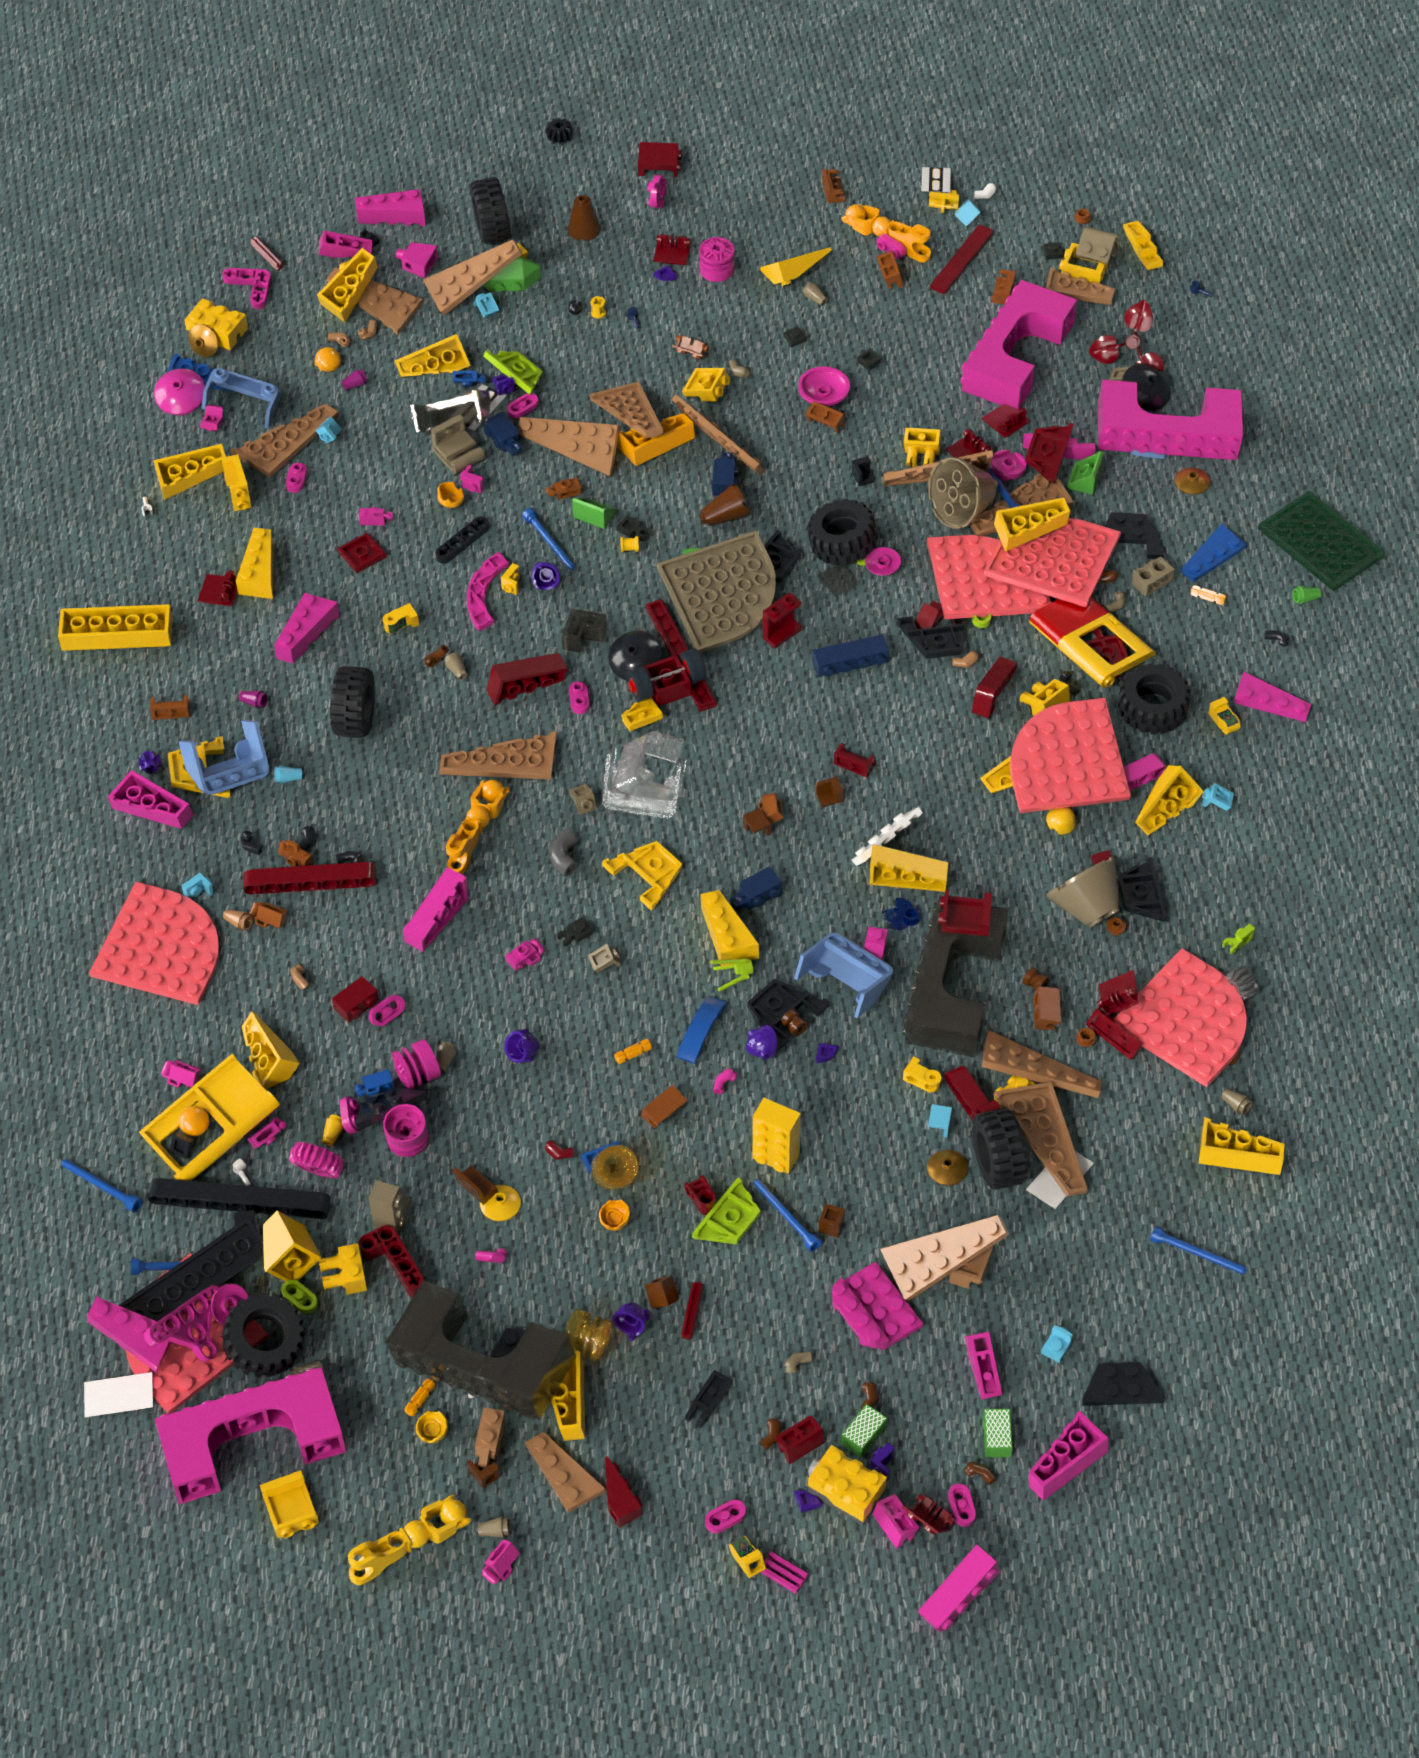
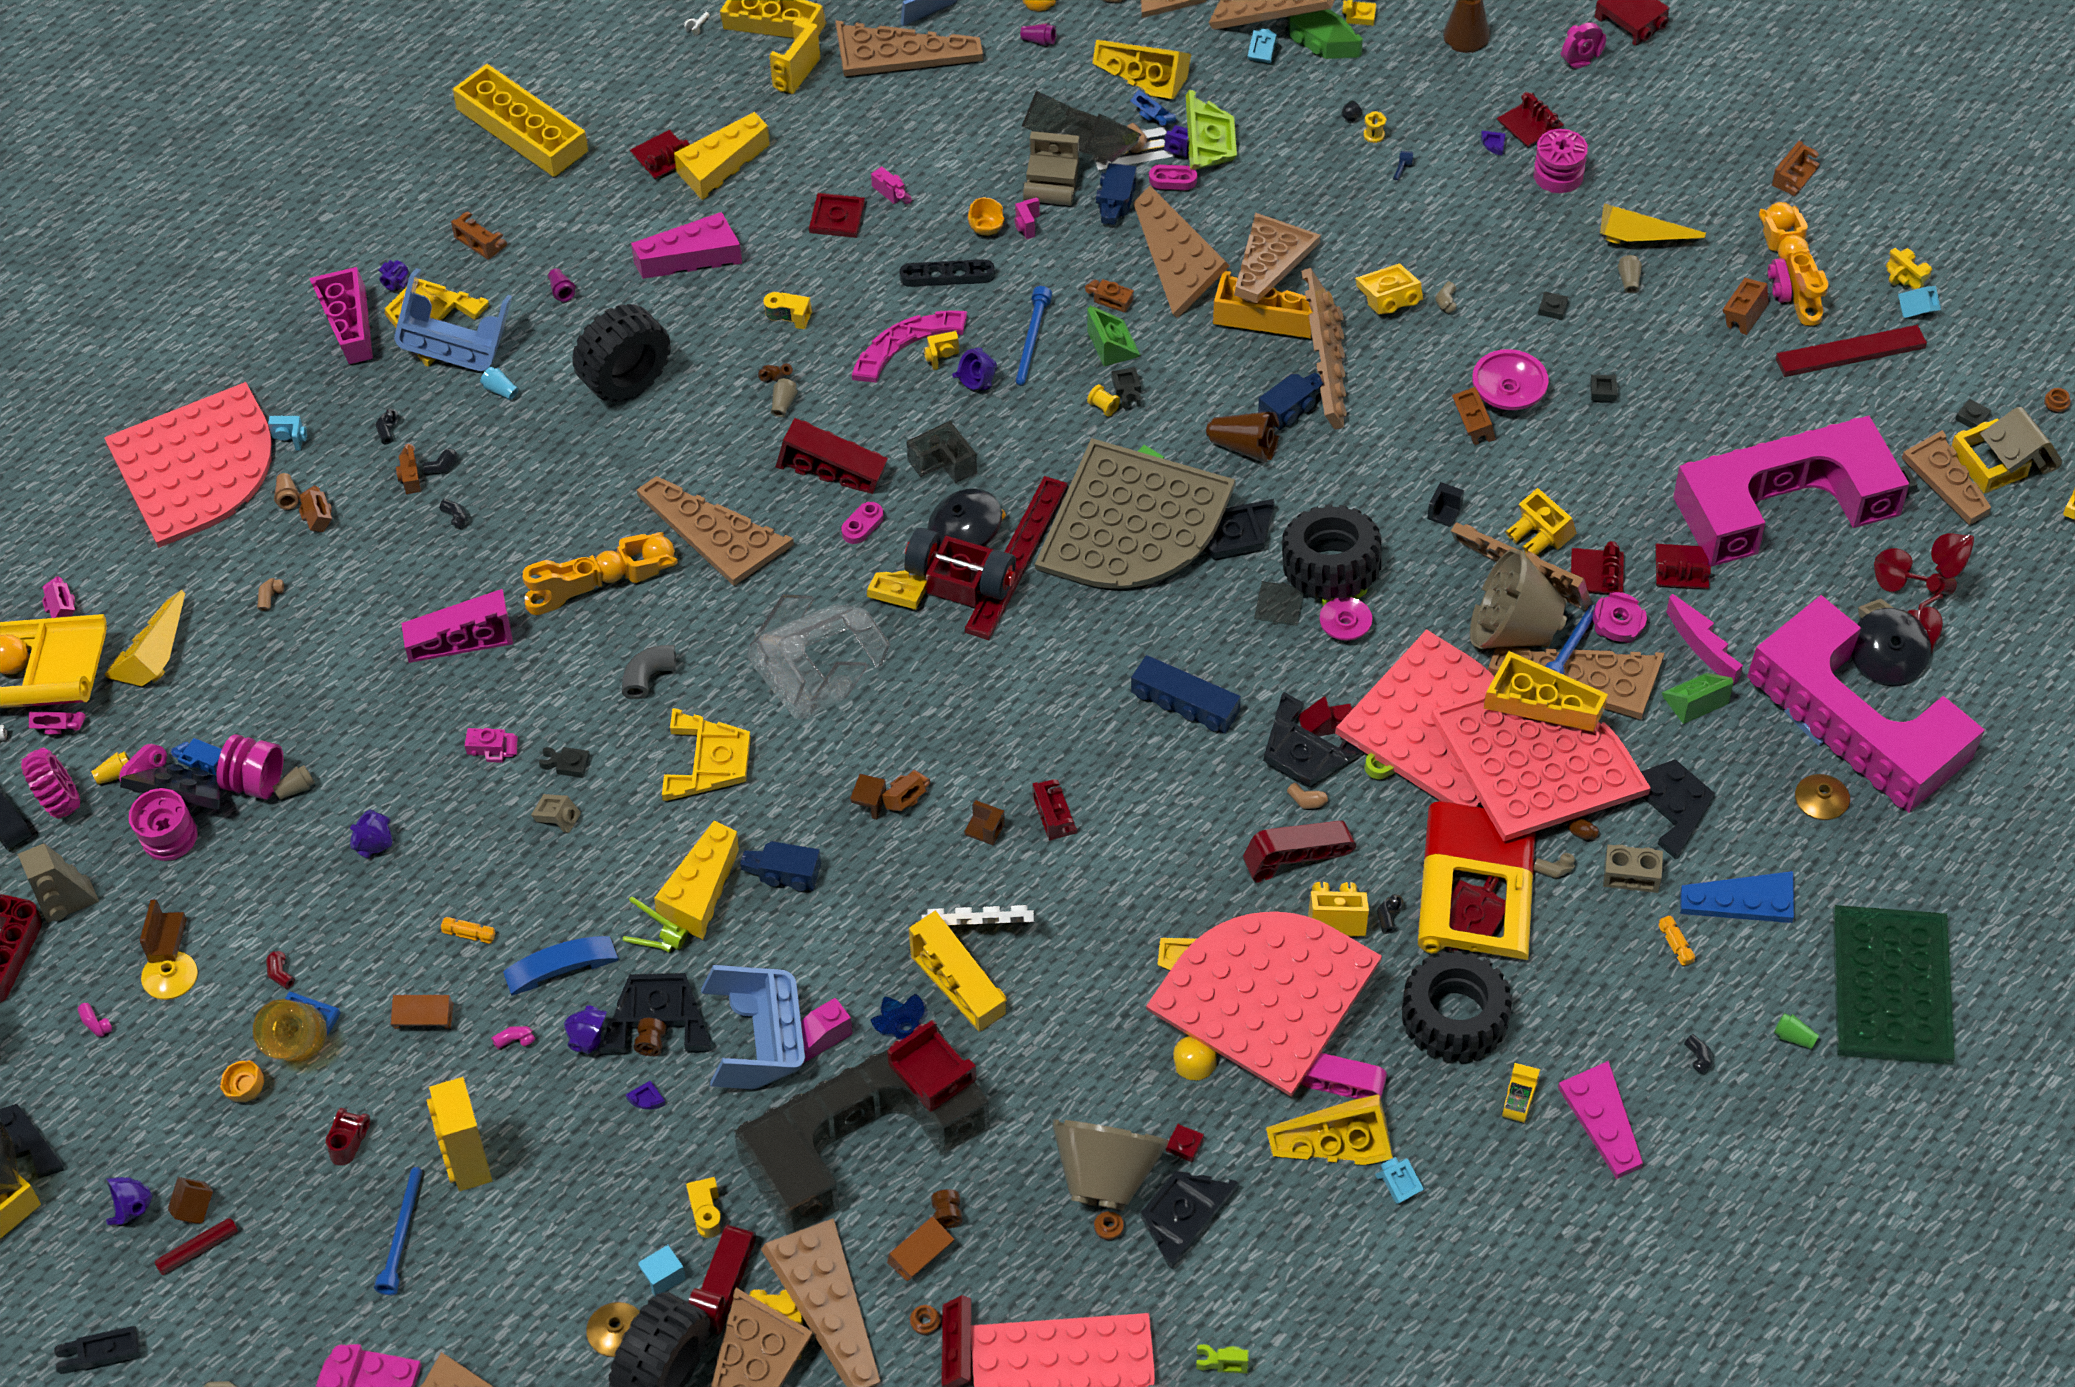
camera: 45 degrees right, 0 degrees up
(296, 477) = (867, 94): dark pink plate -> none
(309, 878) = (394, 503): dark red beam -> none
(328, 430) = (951, 67): medium azure bracket -> none
(355, 999) = (285, 657): dark red brick -> none
(385, 1010) = (300, 692): dark pink plate -> none
(583, 798) = (735, 628): dark tan bracket -> none
(590, 1336) = (63, 1177): clear yellow wheel -> none
(684, 345) = (1423, 244): hinge -> none
(729, 1217) = (346, 1182): lime wing -> none
(780, 621) = (1149, 597): dark red panel -> none
(831, 1220) = (428, 1277): reddish brown panel -> none
(936, 179) = (1925, 240): sticker -> none
(987, 193) = (1972, 296): white arm -> none
(1003, 286) = (1877, 411): dark orange hinge -> none
(1048, 450) = (1676, 631): dark red wing -> none
(1118, 993) = (1011, 1301): dark red hinge -> none

